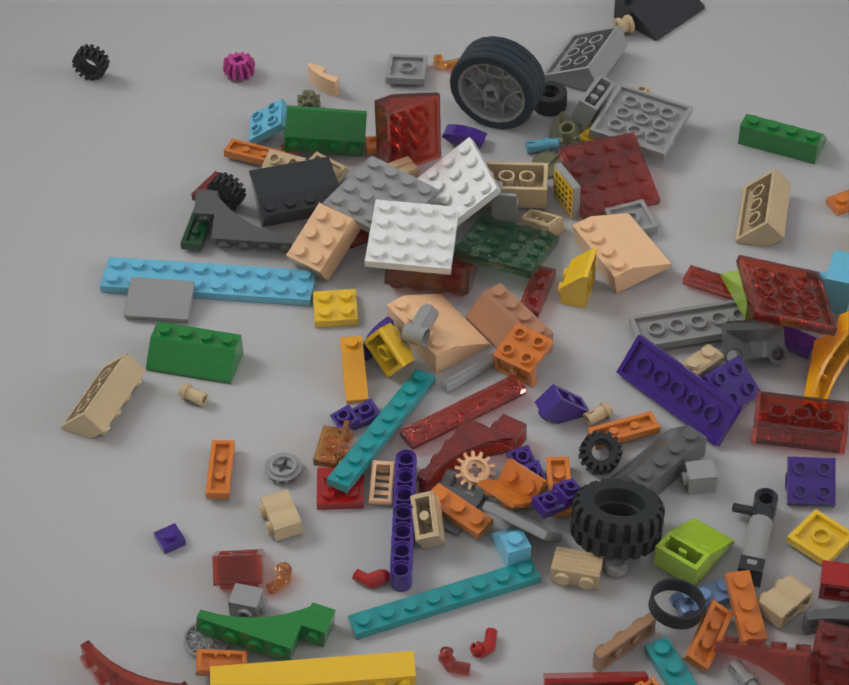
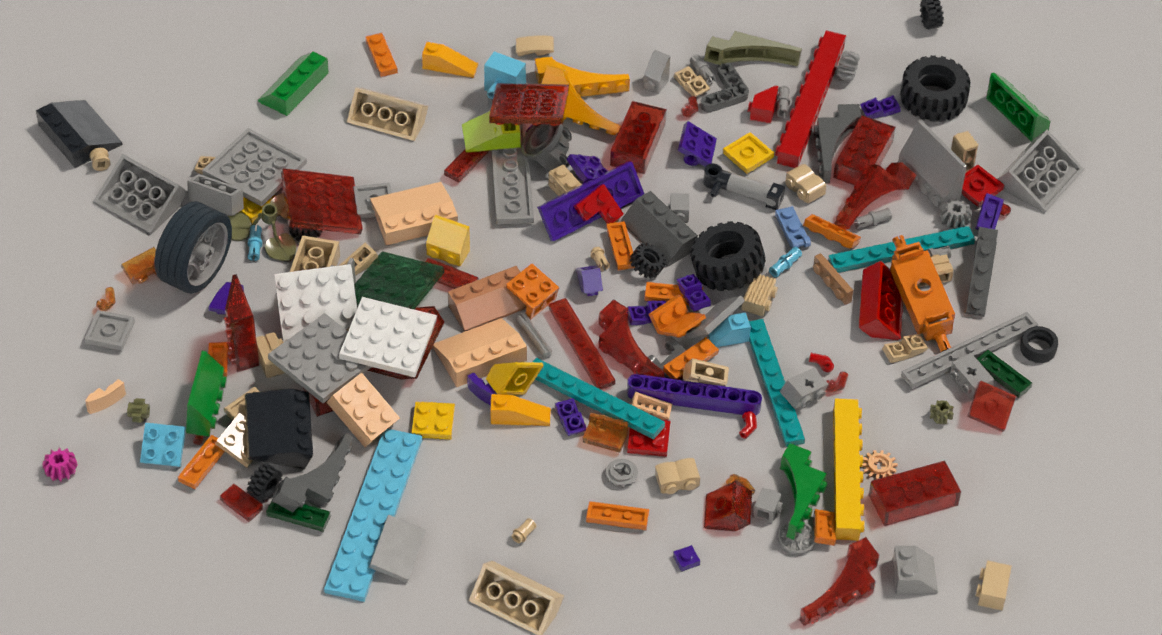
camera: 85 degrees left, 5 degrees up
(85, 68) = (16, 589): black tyre -> none
(194, 352) = (474, 525): green slope -> none
(419, 329) = (505, 348): light grey piece -> none
(424, 609) = (804, 388): none -> light grey brick
(467, 464) = (642, 339): light nougat gear -> none
(566, 191) = (338, 229): tile -> none
(640, 591) = (785, 262): none -> medium azure pin
(676, 395) = (599, 201): none -> red plate
(682, 586) = (810, 249): black tyre -> none
(691, 550) = (762, 219): lime slope -> none
(745, 606) = (809, 205): orange plate -> none

